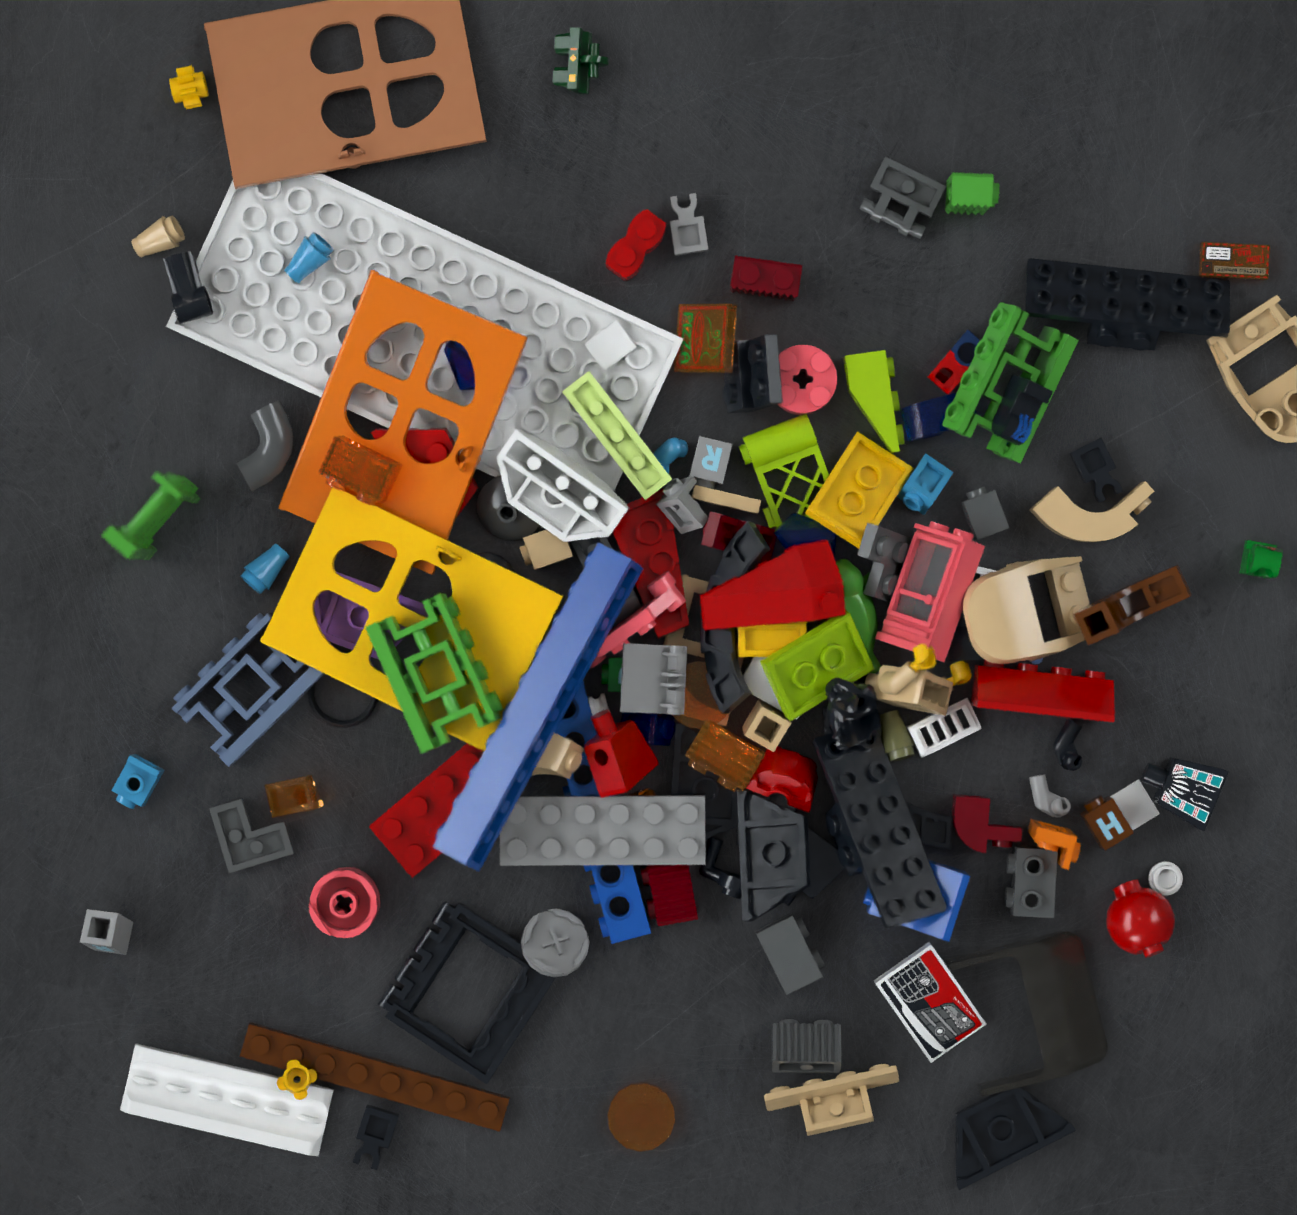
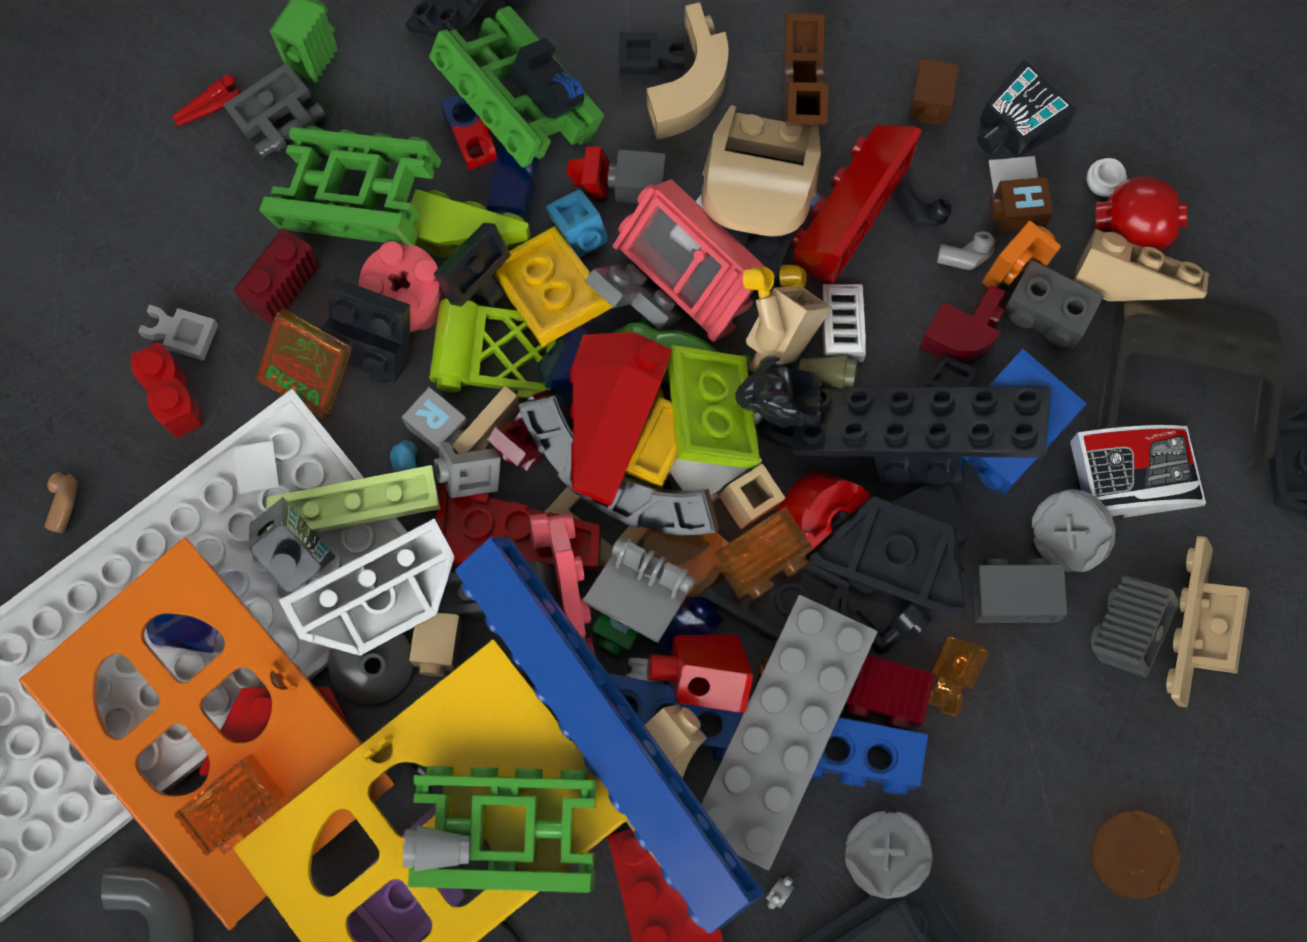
camera: 60 degrees left, 15 degrees down
(397, 633) = (434, 849): none -> light grey cone
(492, 878) = (780, 892): none -> light grey piece
(515, 216) = (65, 492): none -> medium nougat arm
(554, 417) = (289, 547): none -> torso
(713, 933) = (956, 669): none -> clear orange plate
(838, 302) = (345, 214): none -> bright green fence
(841, 429) = (471, 268): none -> black plate
(855, 973) = (1073, 530): none -> light grey tile
(890, 141) = (209, 101): none -> red piece
(970, 476) = (591, 173): none -> red tile
(1085, 929) = (1136, 272): none -> tan slope
(1170, 711) = (933, 91): none -> reddish brown brick

